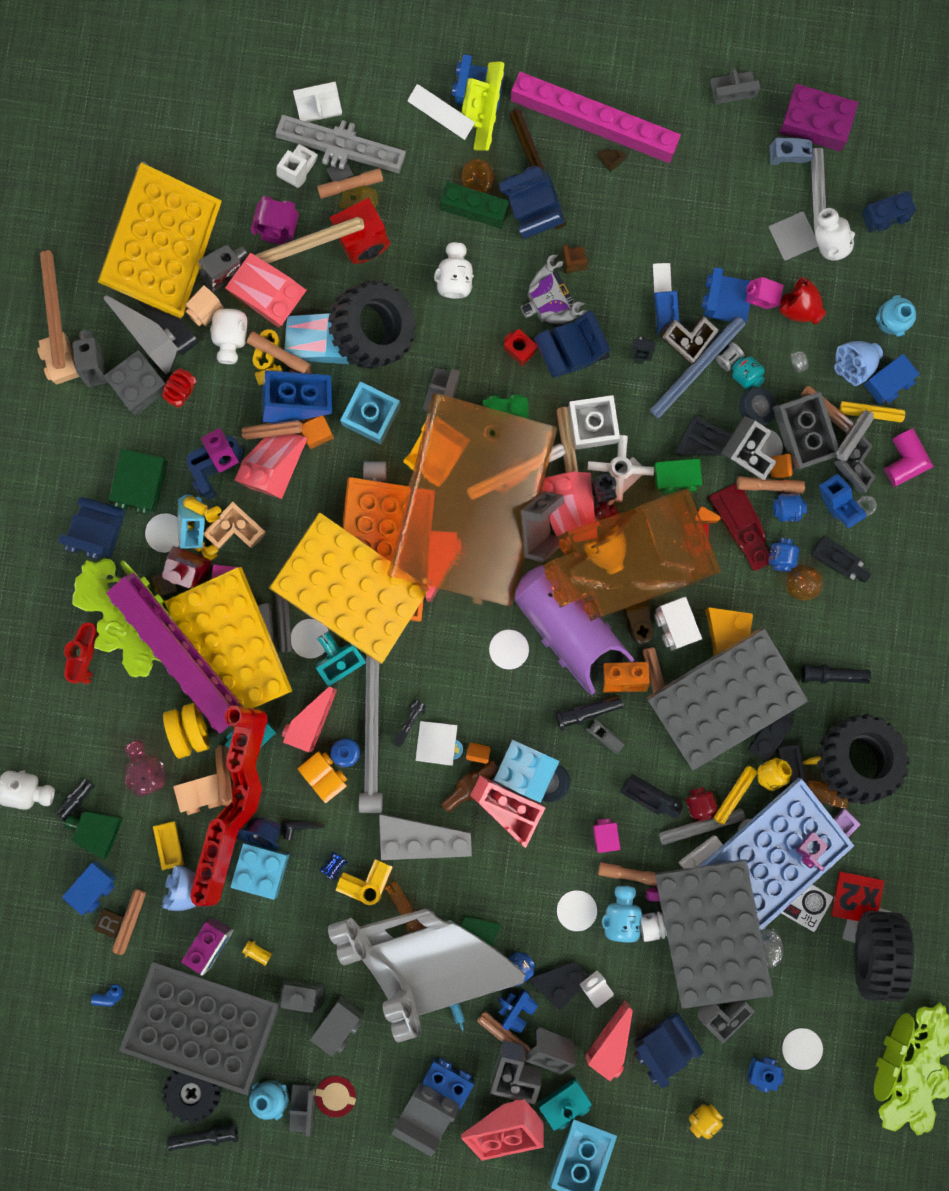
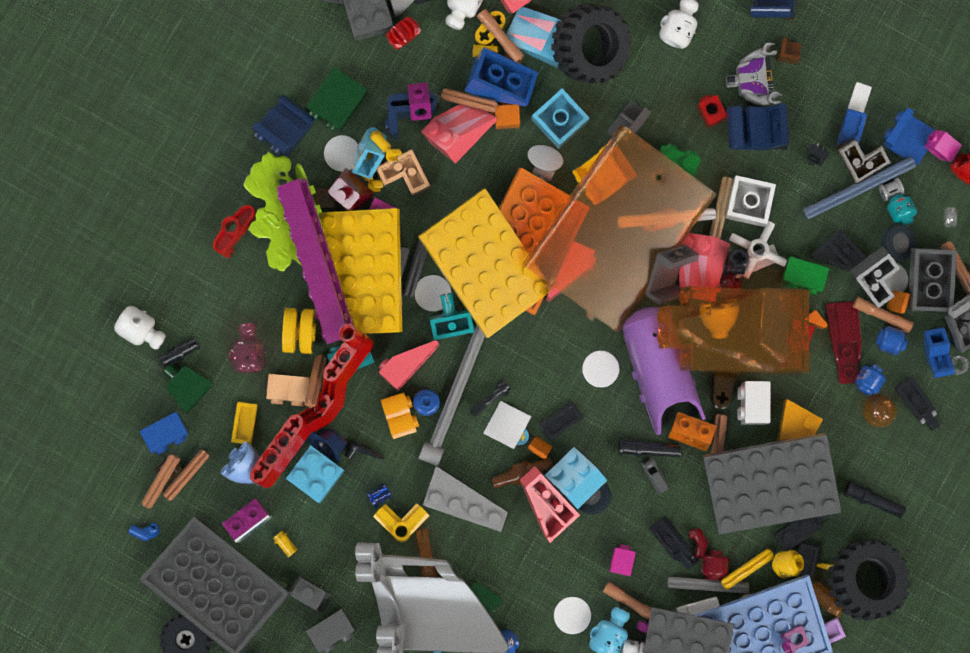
camera: 15 degrees right, 0 degrees up
(104, 939) = (160, 481): none -> nougat axle
(371, 458) = (545, 157): none -> white sticker
(489, 718) = (561, 421): none -> black tile
(678, 784) = (702, 542): none -> dark red arm

